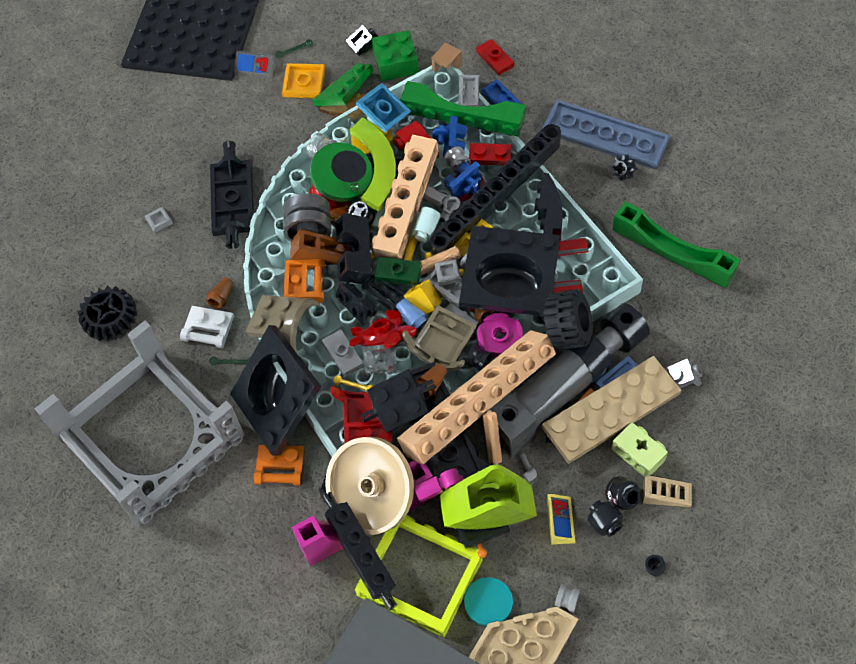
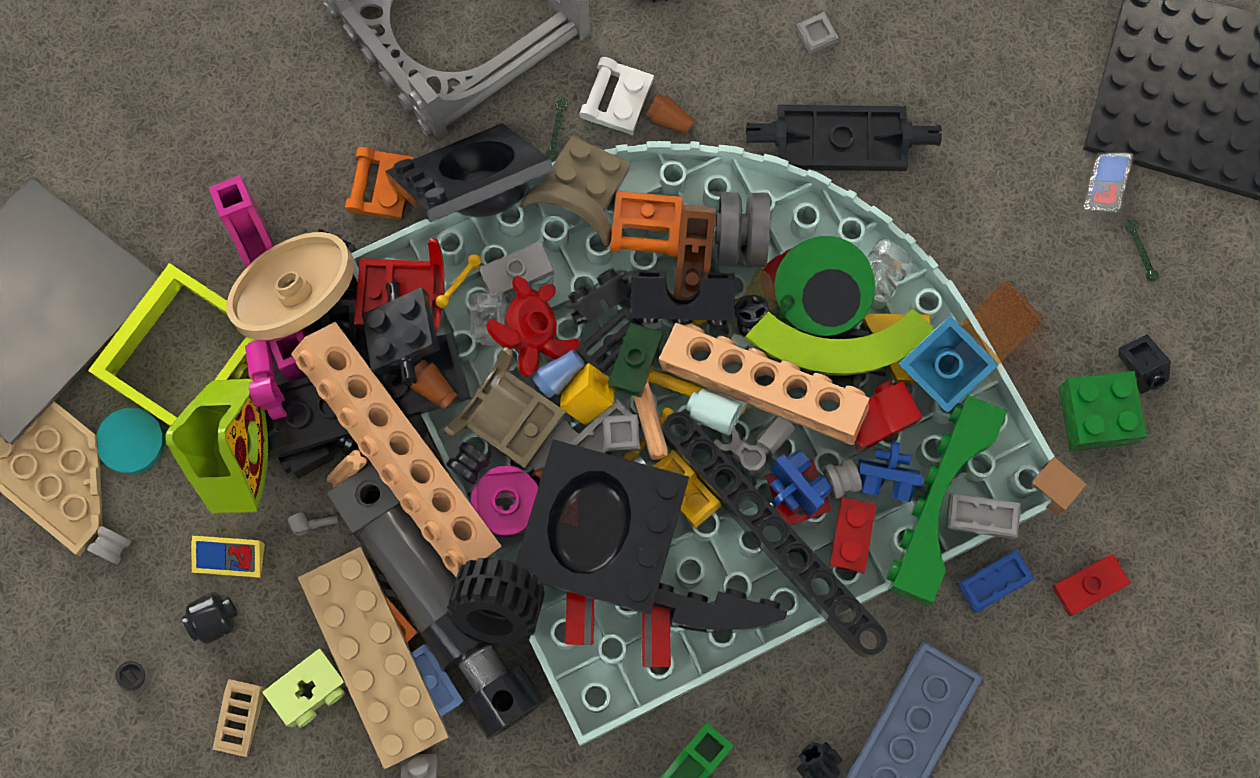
camera: 90 degrees right, 15 degrees up
(303, 80) = (1070, 261): light orange tile -> none
(345, 87) = (1043, 324): green wing -> none
(360, 550) = (211, 268): black plate -> none
(623, 492) = (241, 649): black head -> none

